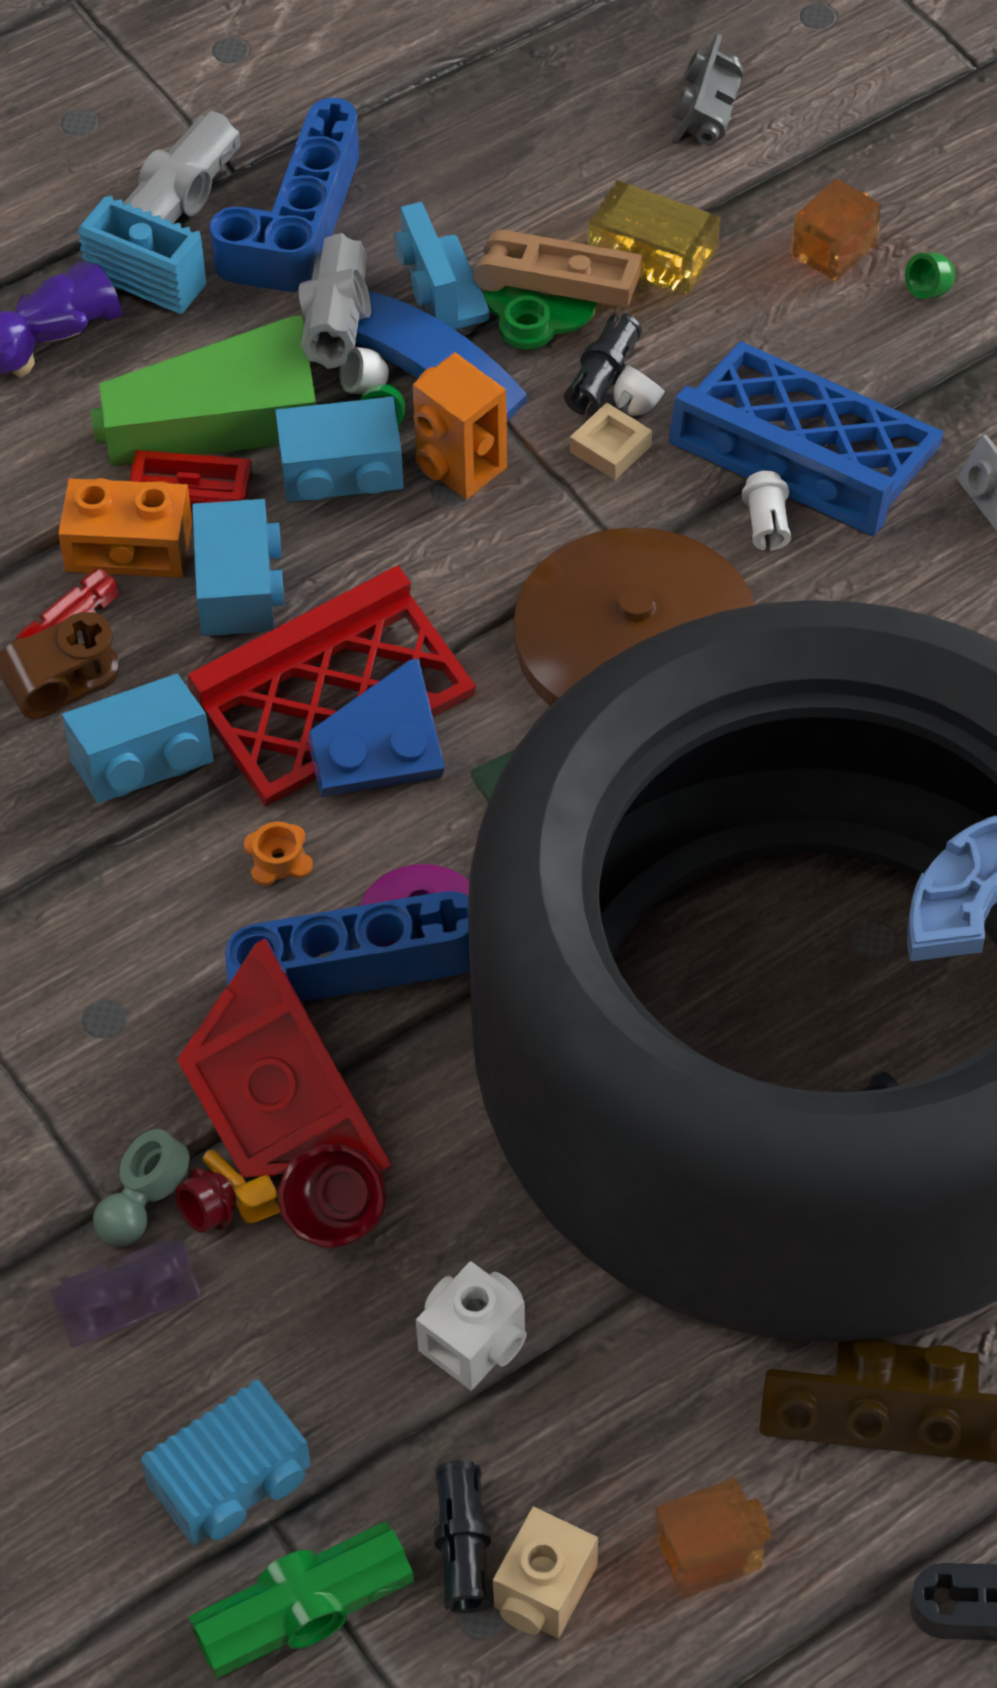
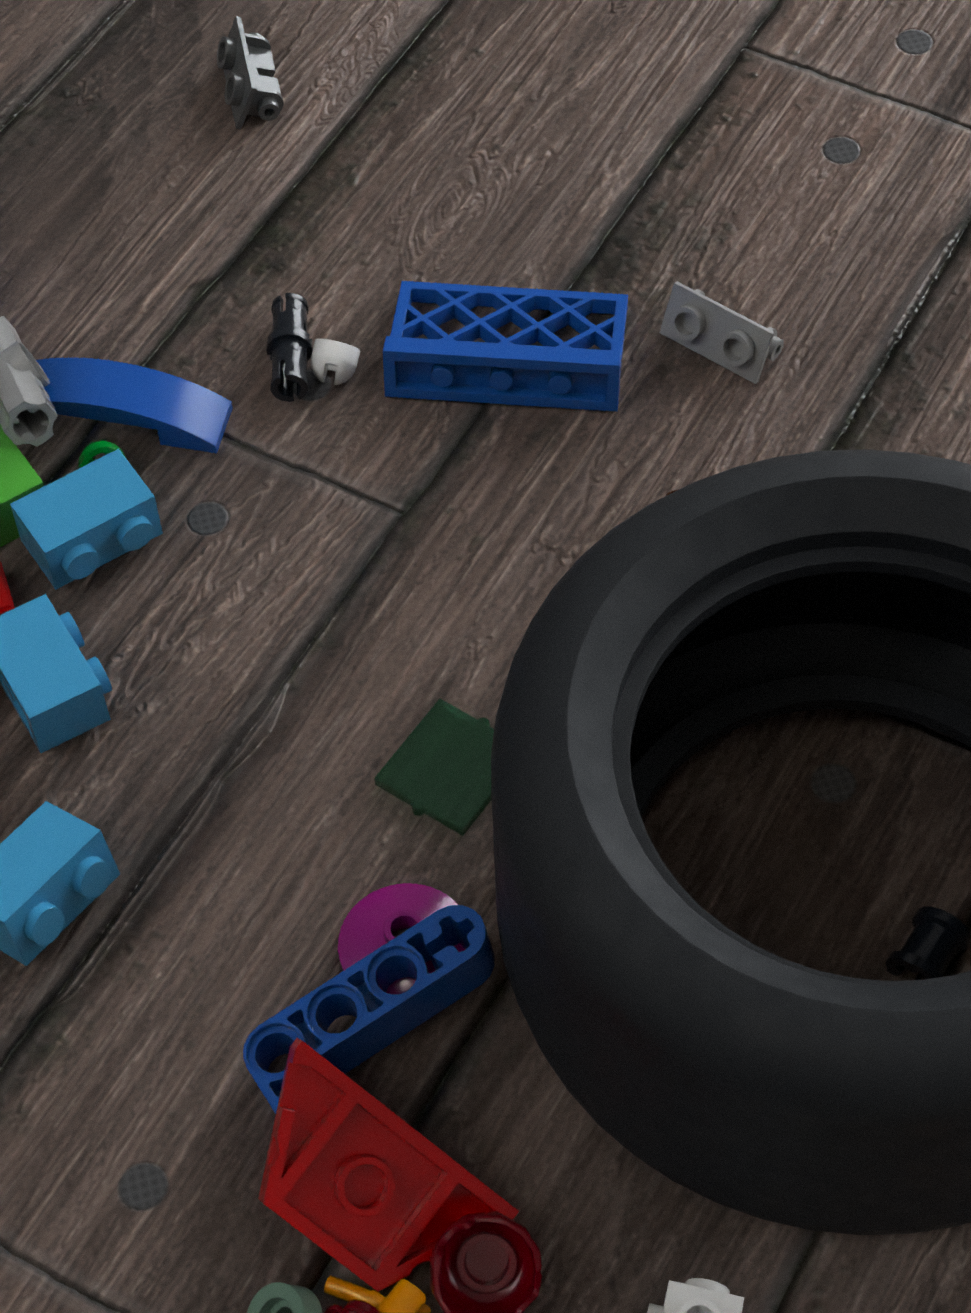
camera: 25 degrees left, 0 degrees up
(275, 839) = (231, 922): orange plate -> none
(293, 652) = (145, 734): red fence -> none
(363, 370) = (69, 438): white hinge -> none
(378, 737) = (273, 783): blue wing -> none
(438, 271) = (89, 316): dark azure bracket -> none
(460, 425) = (194, 451): orange brick -> none
(532, 318) = (197, 318): green plate -> none
(558, 268) = (202, 274): medium nougat plate -> none
(610, 441) = (333, 415): tan tile -> none
(612, 594) = (446, 579): reddish brown dish -> none
(668, 234) = (272, 216): clear yellow brick -> none
(766, 499) = (506, 412): white pin -> none
(836, 229) = (433, 151): clear orange brick -> none
(926, 270) = (528, 161): green hinge -> none

